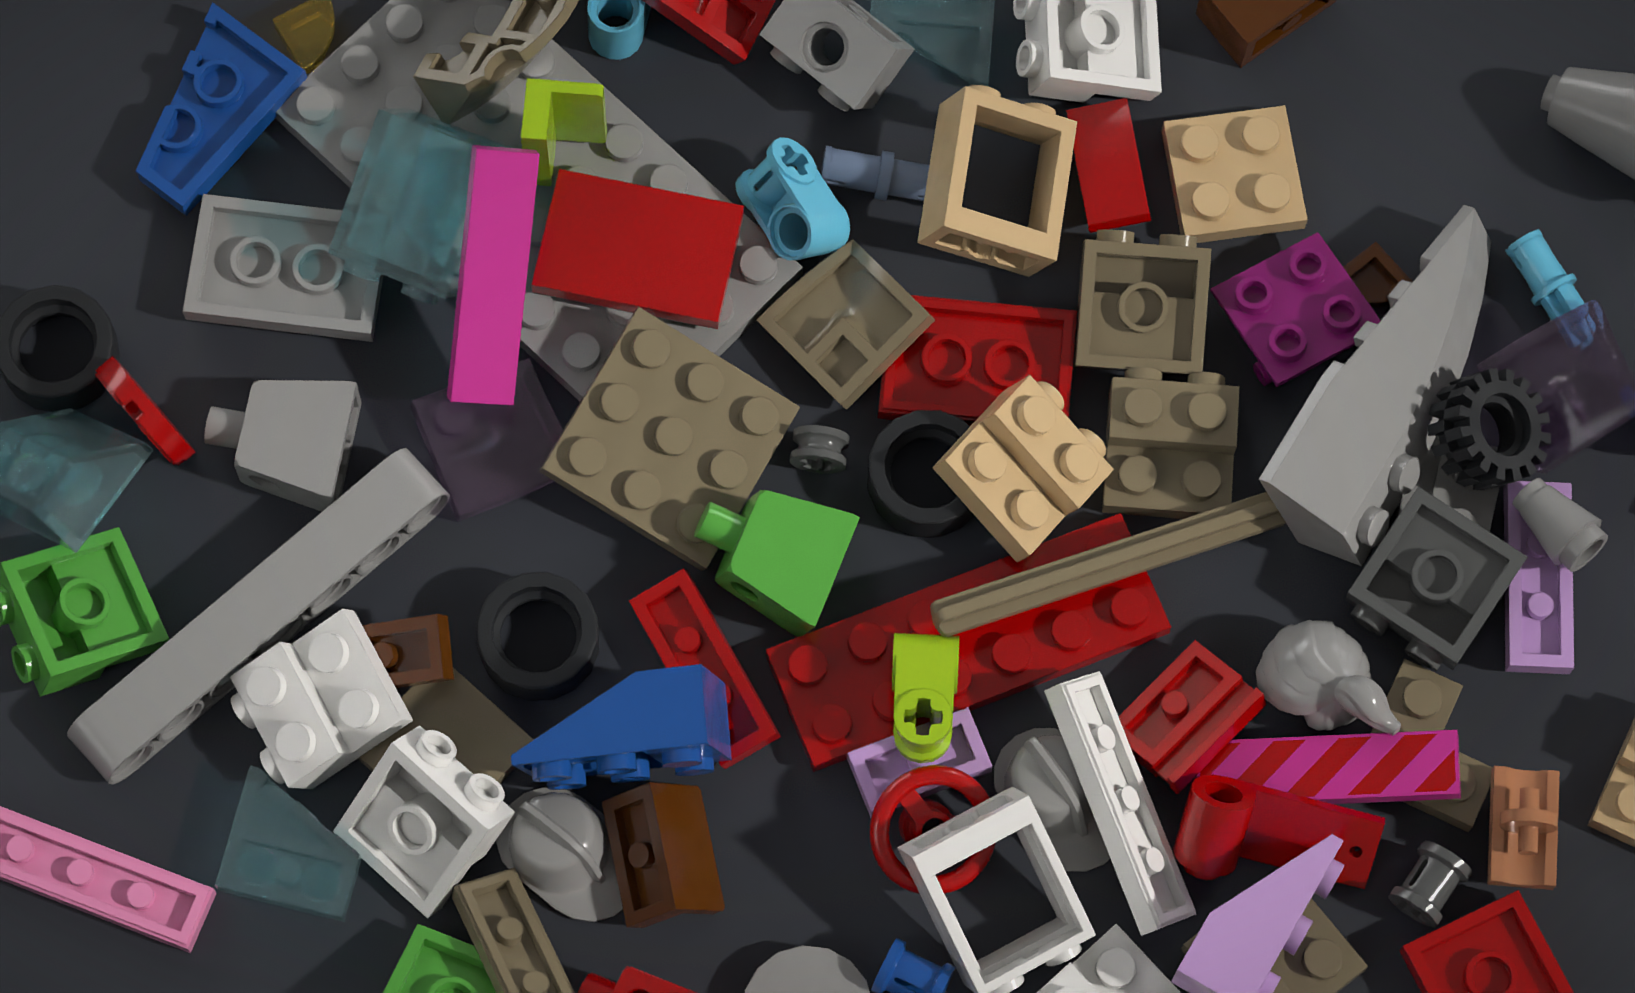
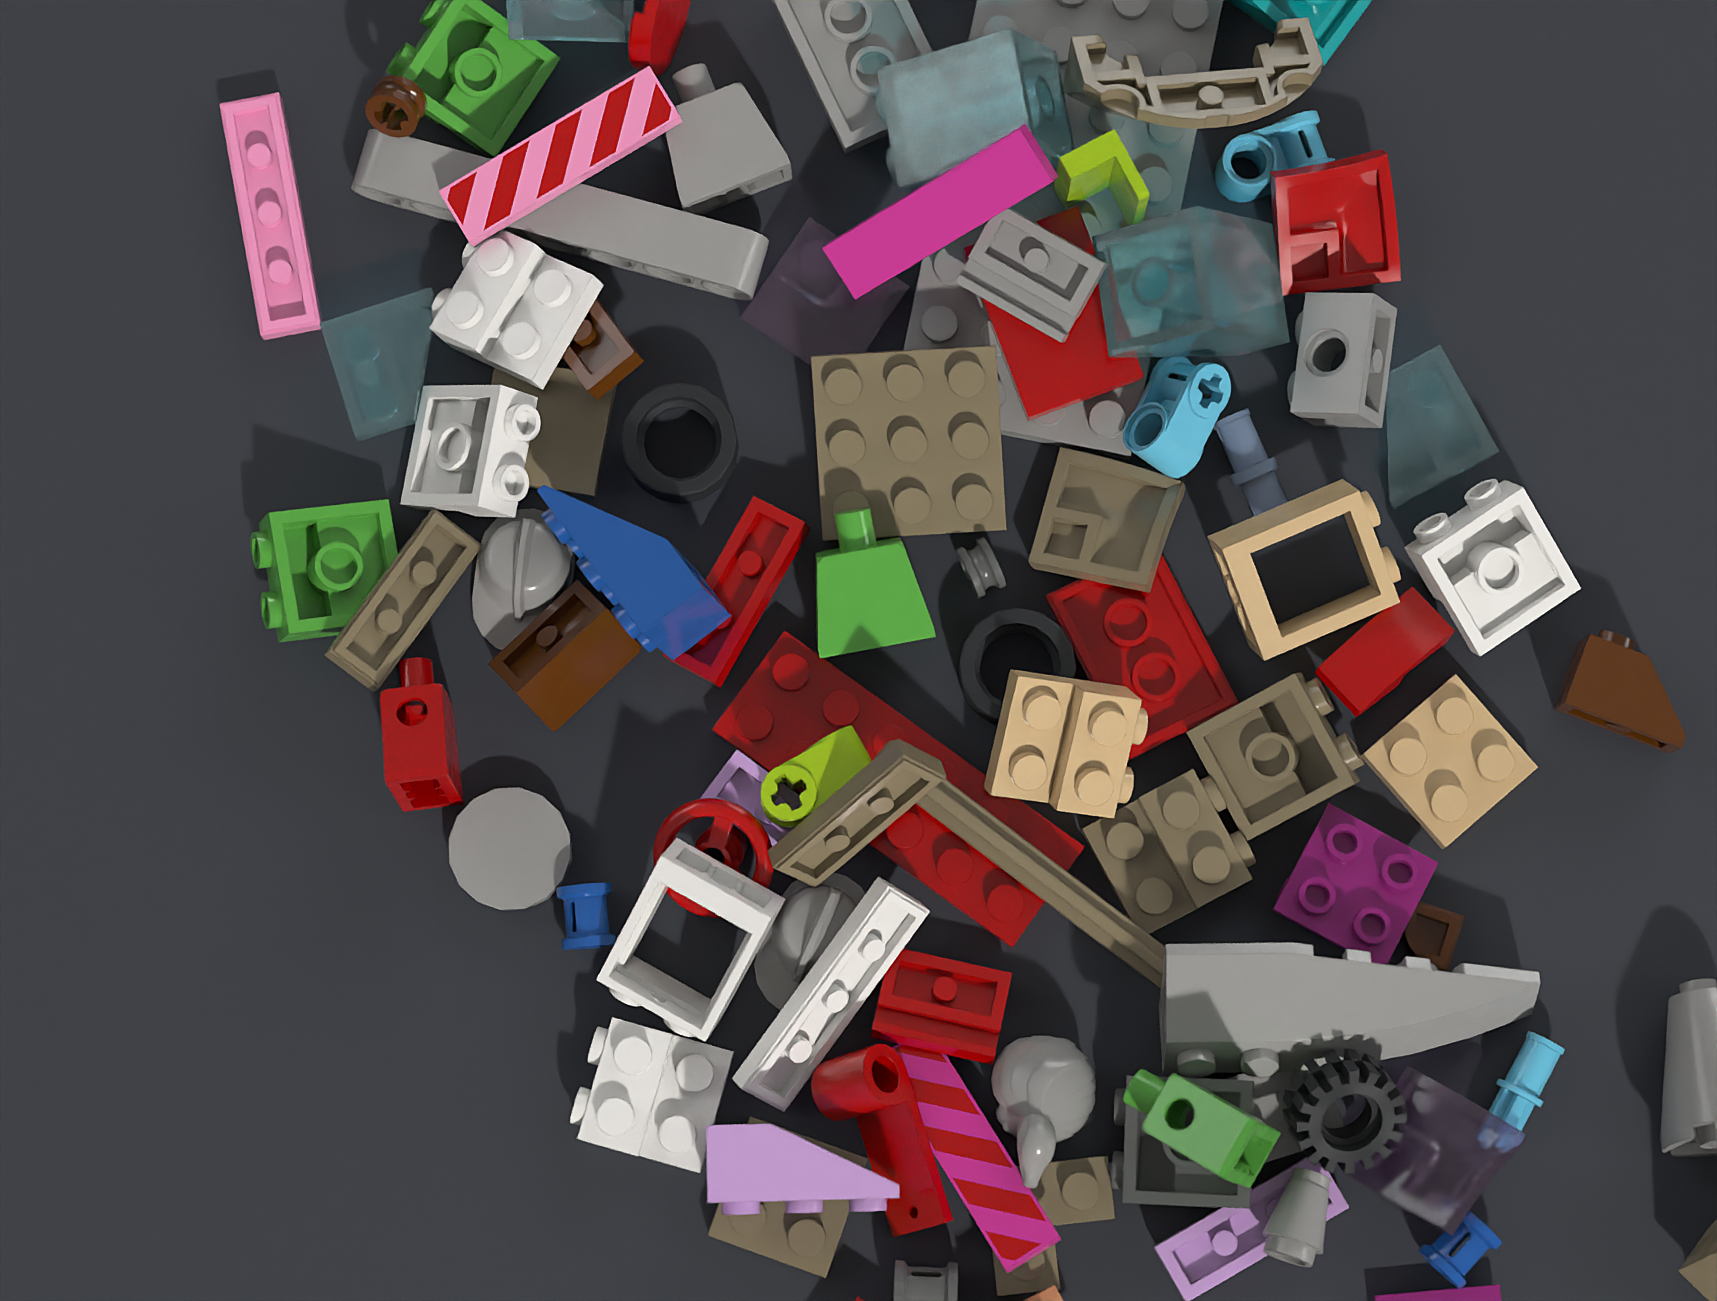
camera: 65 degrees right, 10 degrees up
(81, 698) = (388, 117): none -> reddish brown bush
(215, 572) = (560, 156): none -> tile
(597, 236) = (1031, 273): none -> light grey plate
(692, 120) = (1191, 286): none -> clear light blue slope
(979, 670) = (857, 813): none -> dark tan tile
(1463, 536) = (1219, 1135): none -> bright green torso

